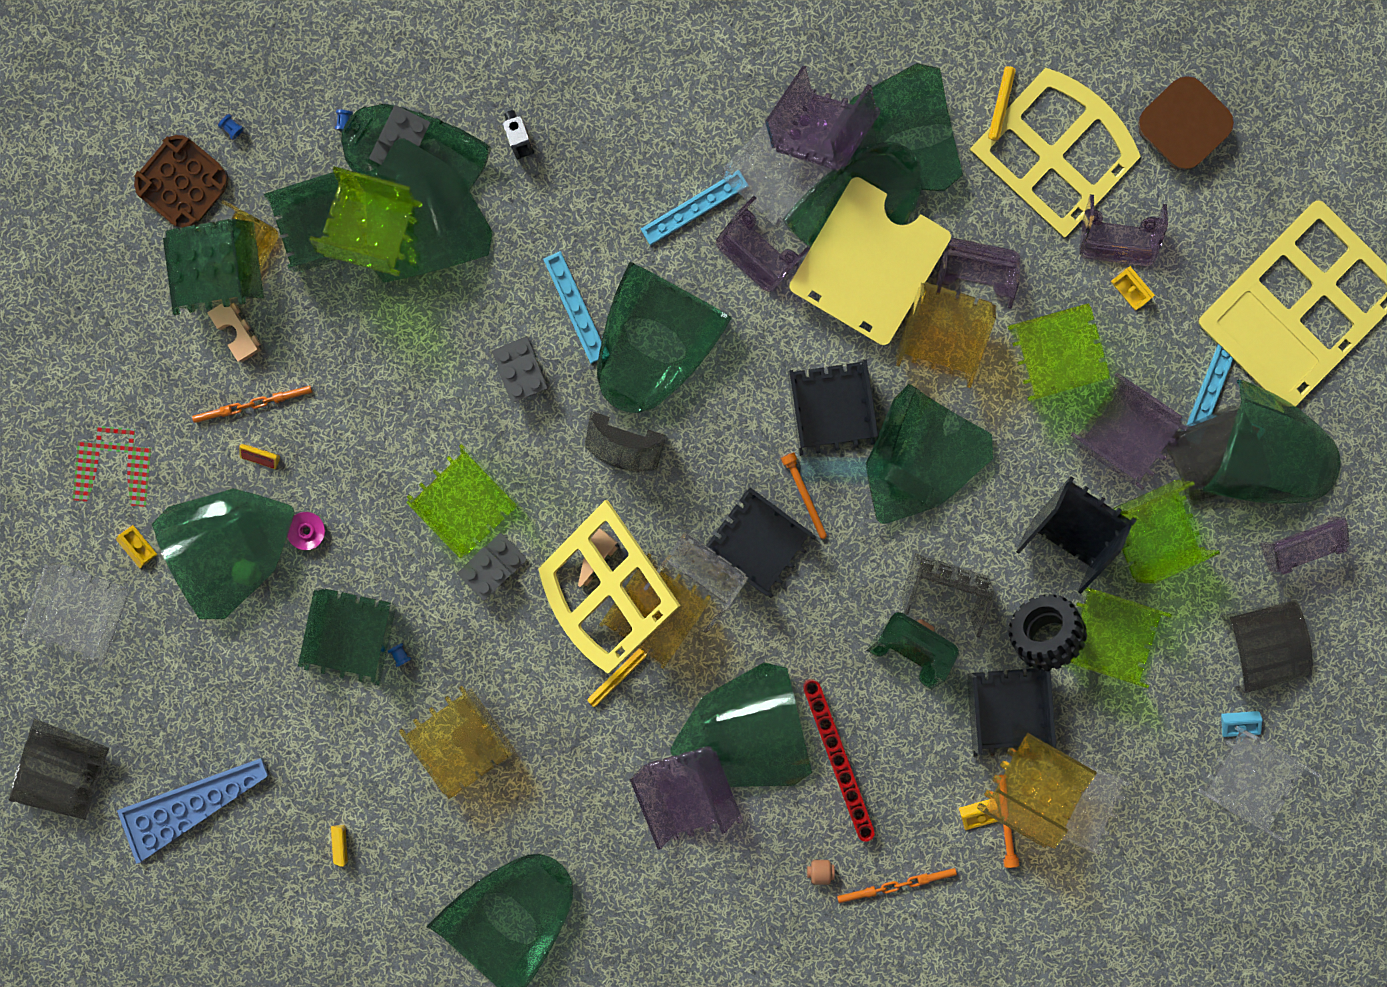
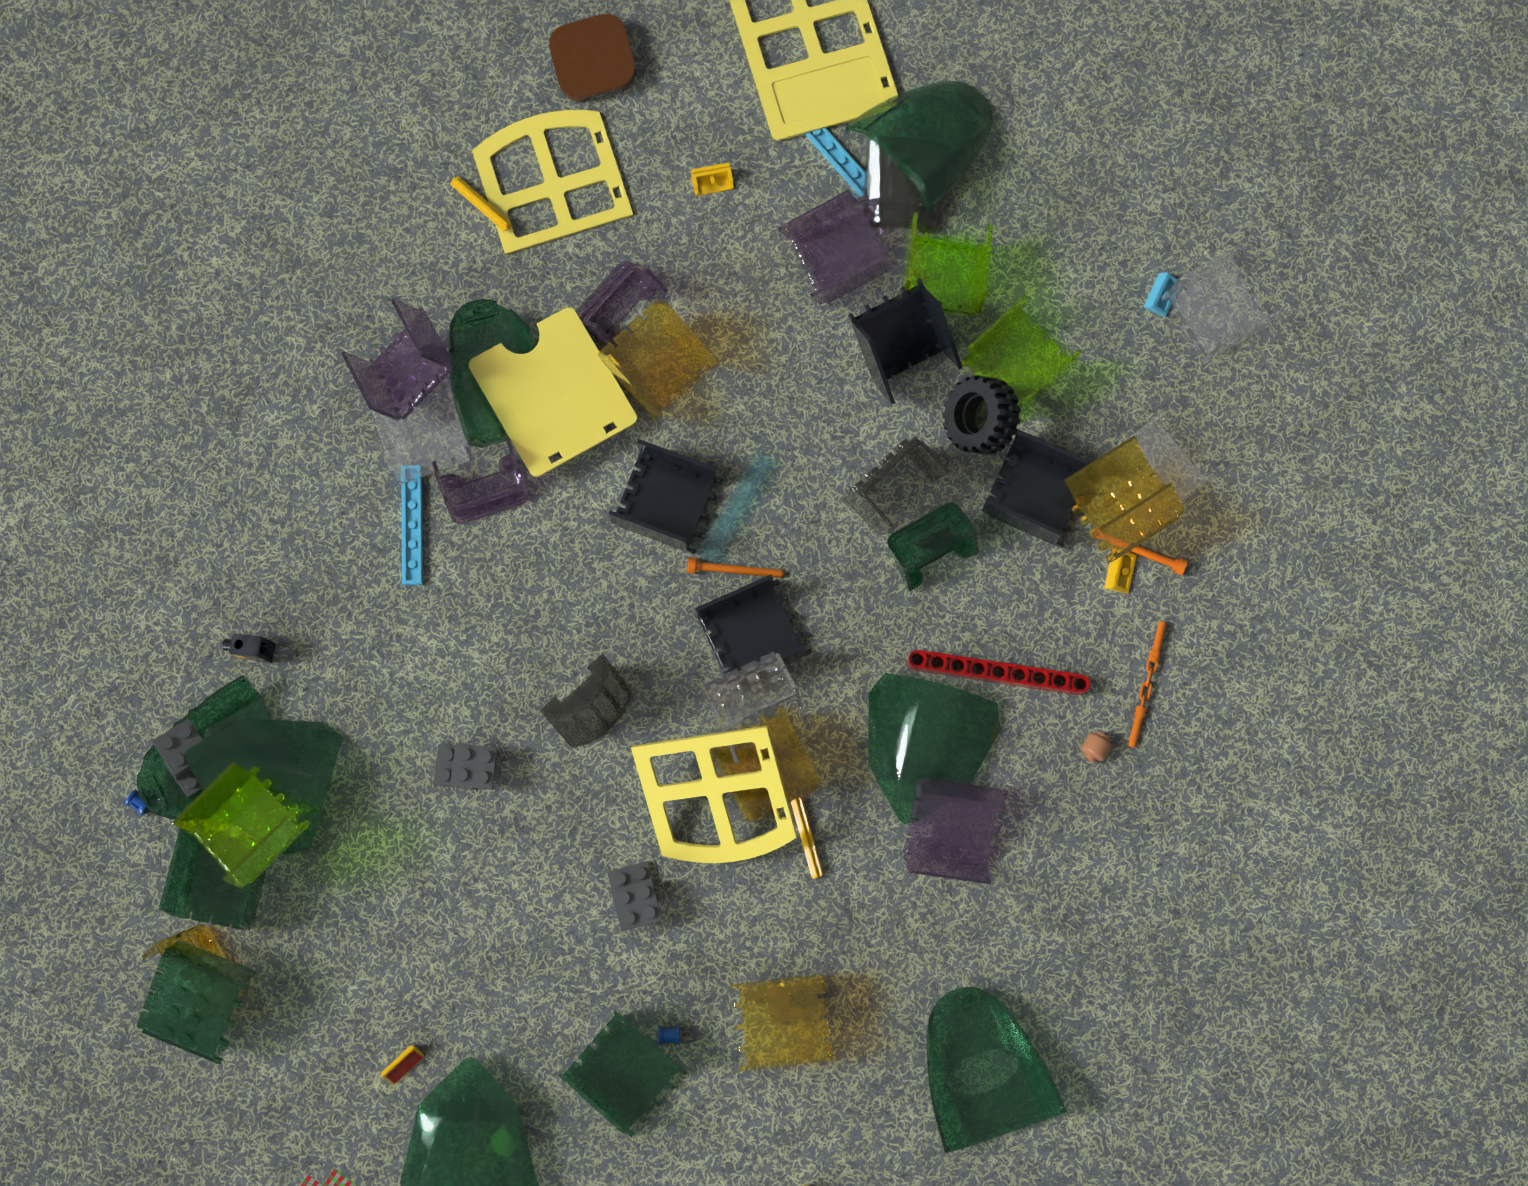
camera: 55 degrees left, 10 degrees down
(181, 181) = (100, 990): reddish brown tile -> none
(227, 411) = (341, 1071): orange piece -> none
(230, 126) = (72, 913): blue bush -> none
(245, 344) = (251, 1019): light nougat arch -> none
(299, 538) = (496, 1047): dark pink dish -> none
(462, 503) = (558, 887): clear neon green windscreen -> none
(574, 305) = (439, 684): medium azure tile -> none
(606, 546) = (686, 805): light nougat slope -> none
(653, 340) = (511, 627): clear green windscreen -> none
(918, 118) = (447, 280): clear green windscreen -> none
(922, 456) = (758, 442): clear green windscreen -> none
(1061, 351) = (732, 267): clear neon green windscreen -> none
(1121, 242) = (666, 167): clear purple windscreen -> none
(1271, 644) = (1104, 227): clear smoke windscreen -> none
(1307, 545) = (1028, 150): clear purple windscreen -> none

